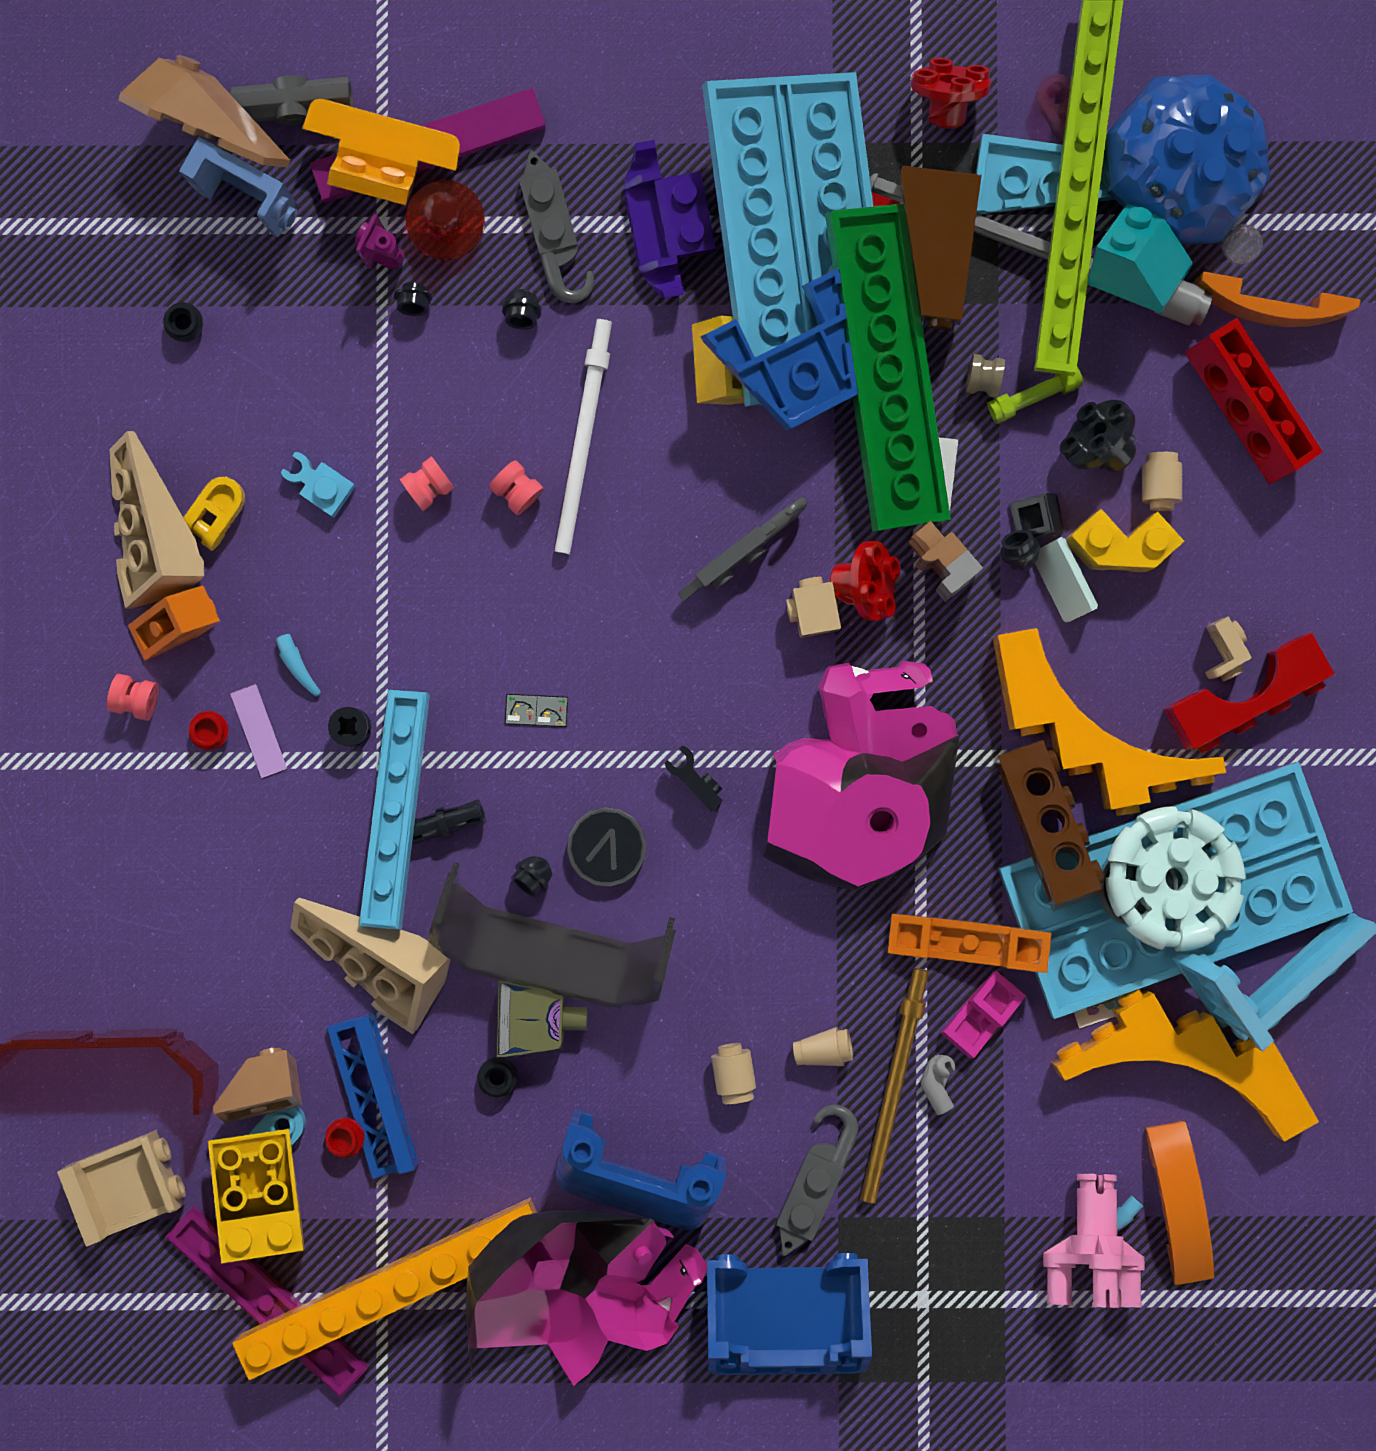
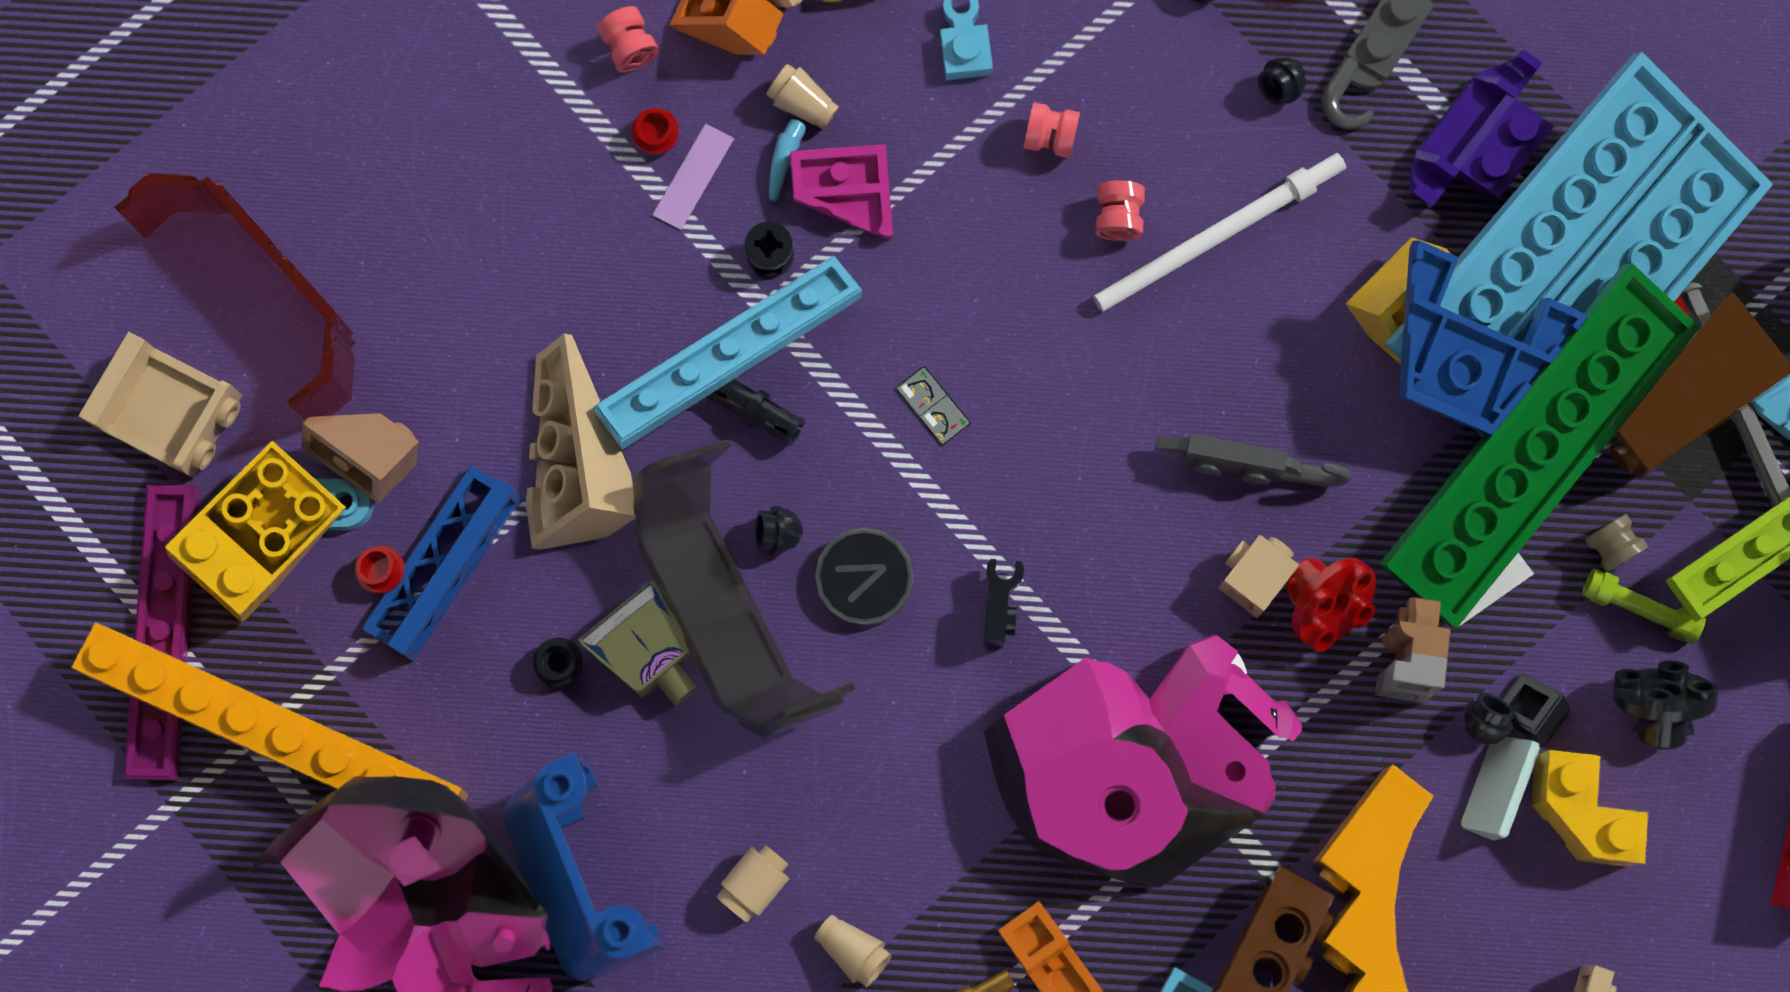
camera: 45 degrees right, 10 degrees down
(267, 620) = (801, 97): none -> tan cone
(349, 643) = (845, 185): none -> dark pink wing
(1162, 481) = (1678, 796): tan brick -> none

